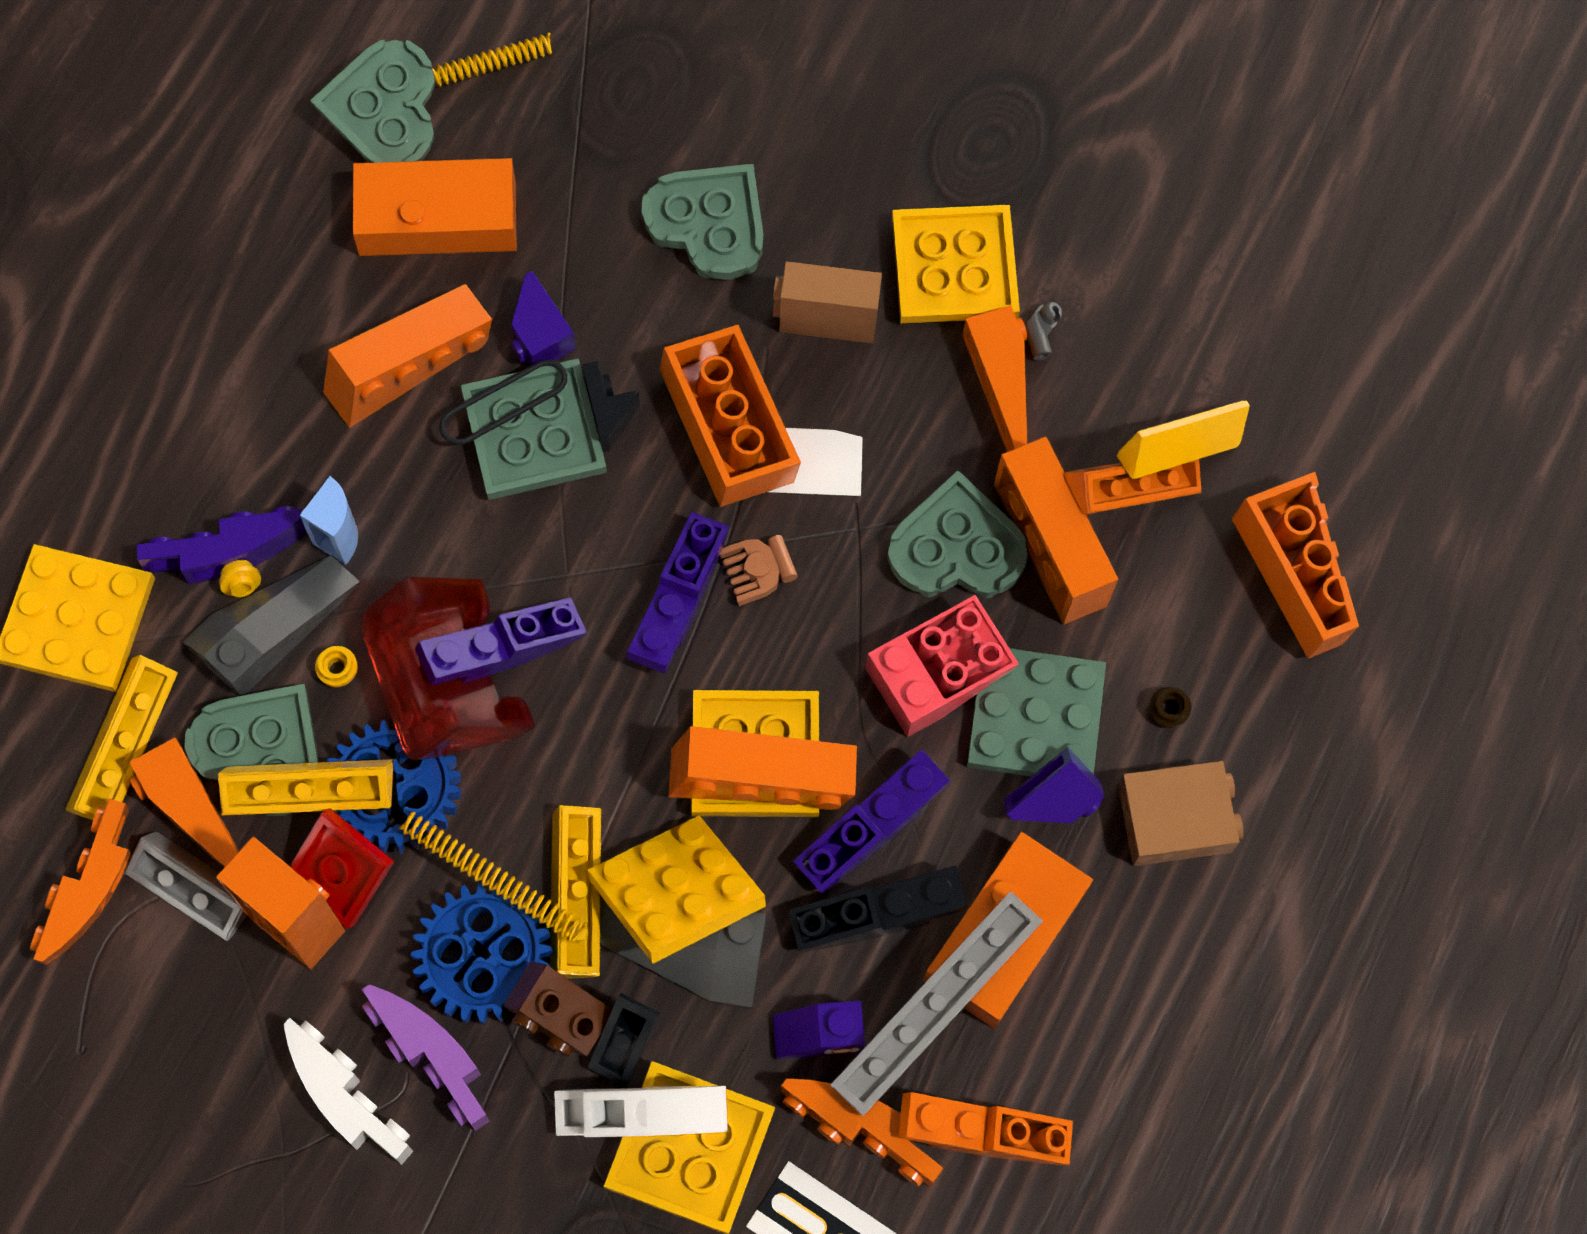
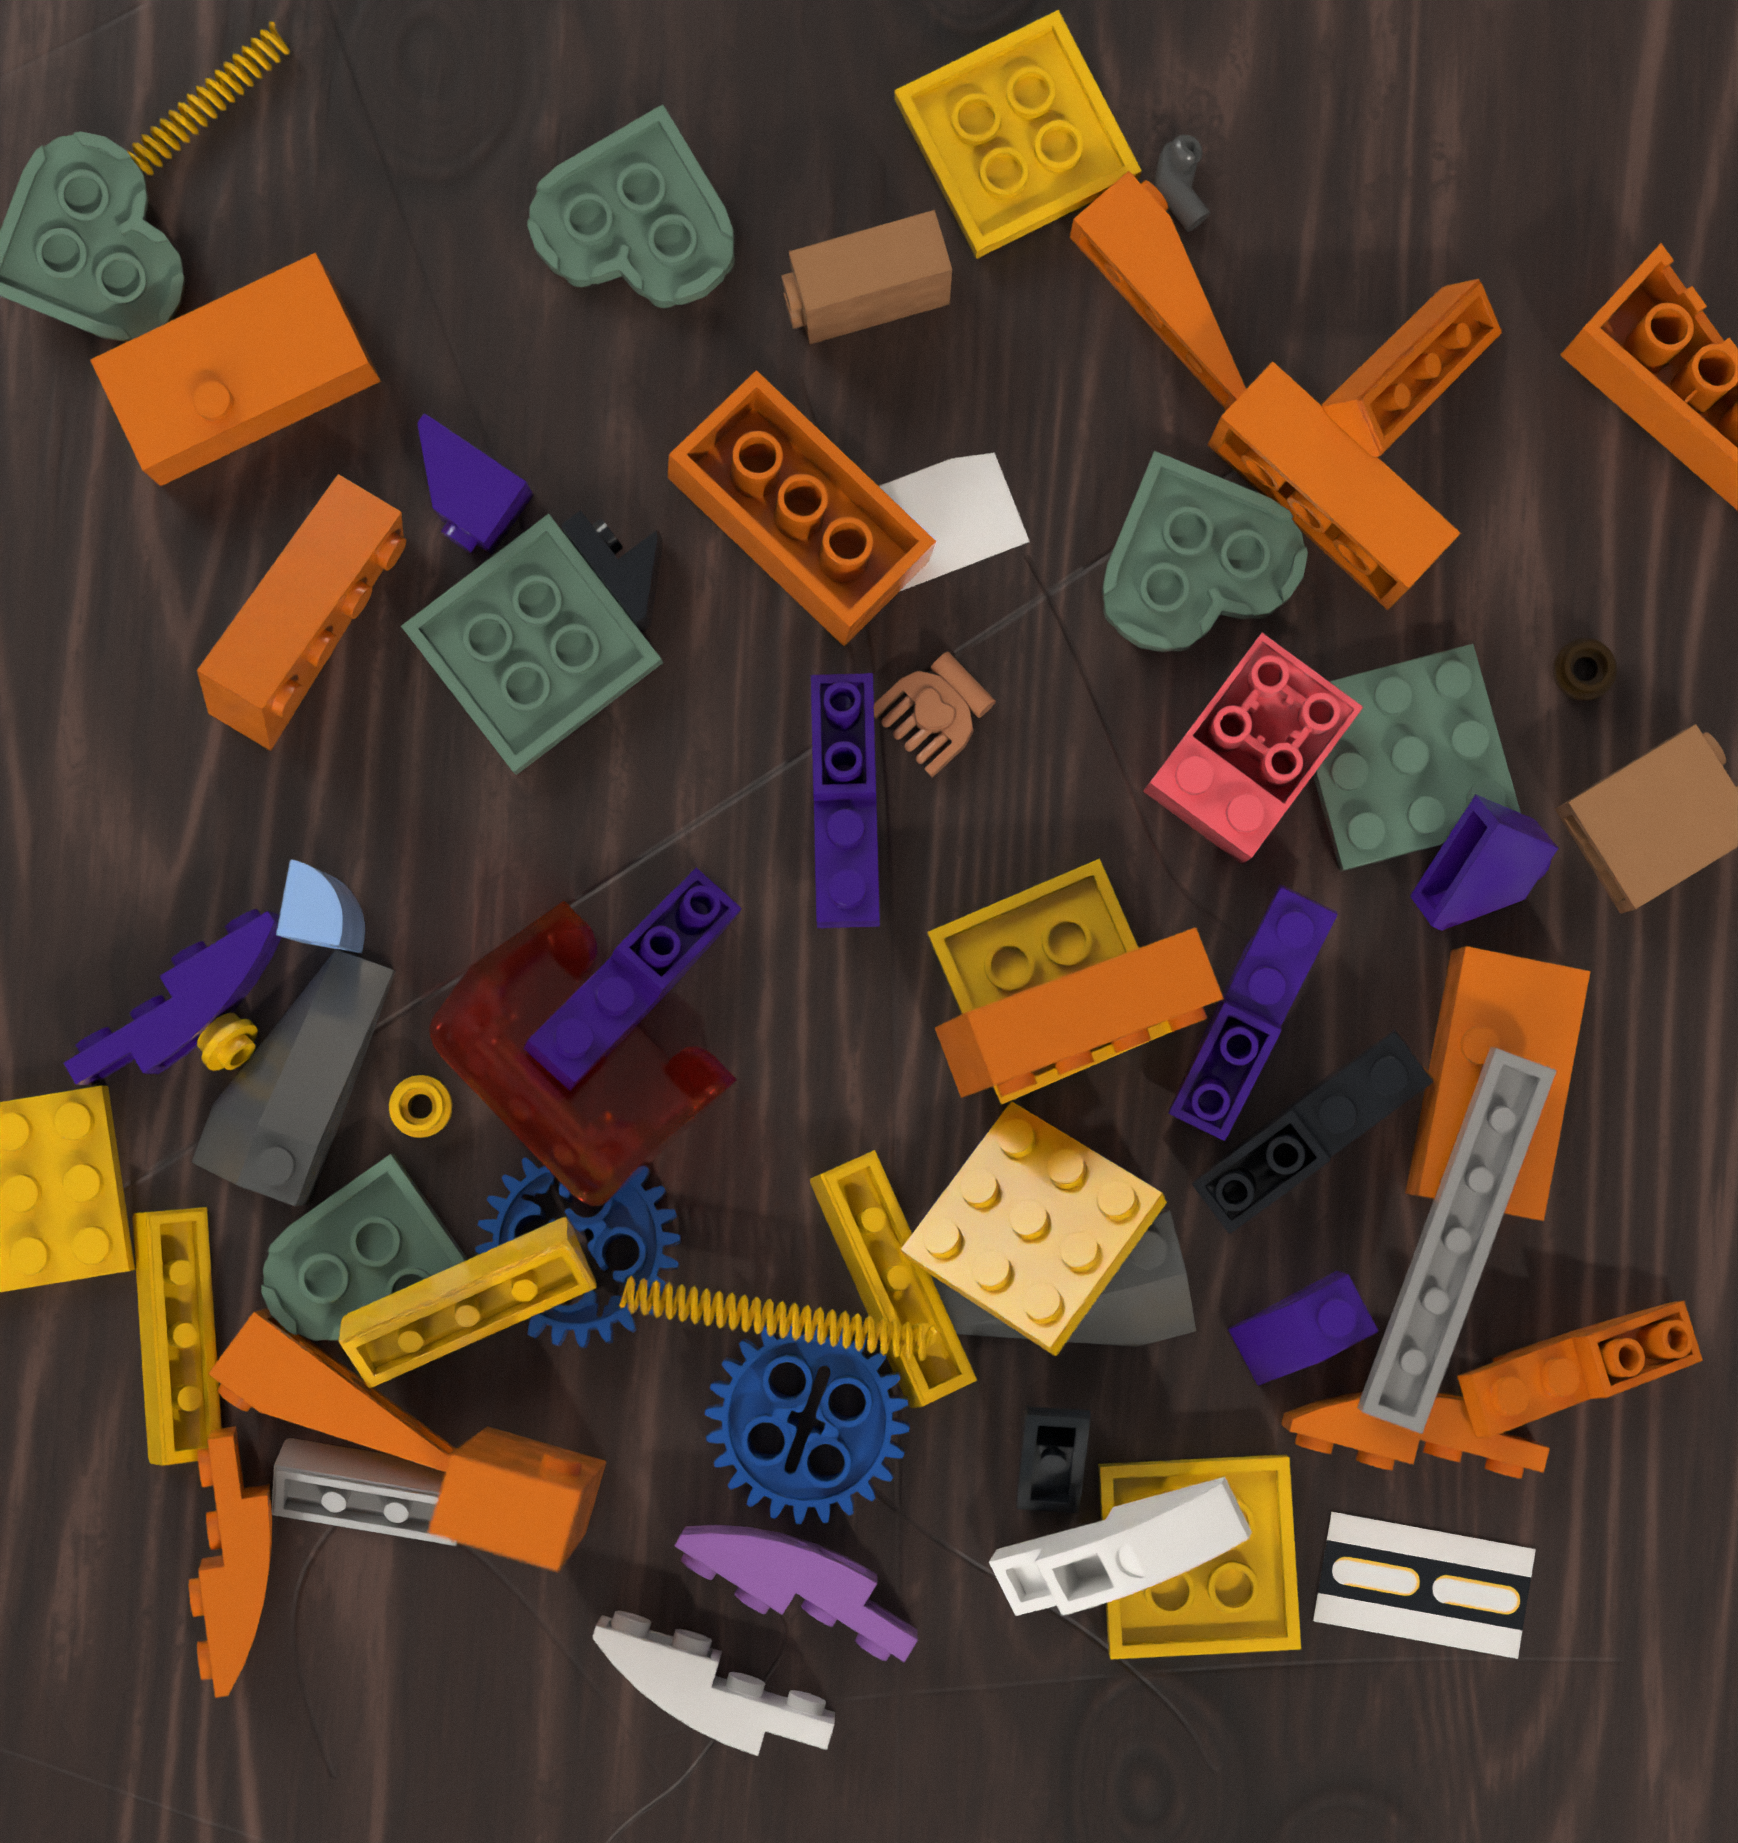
camera: 15 degrees left, 15 degrees up
(343, 865) = (562, 1391): red plate -> none
(448, 414) = (451, 612): black piece -> none
(558, 1009) = (947, 1459): reddish brown brick -> none
(1184, 440) = (1461, 278): yellow slope -> none

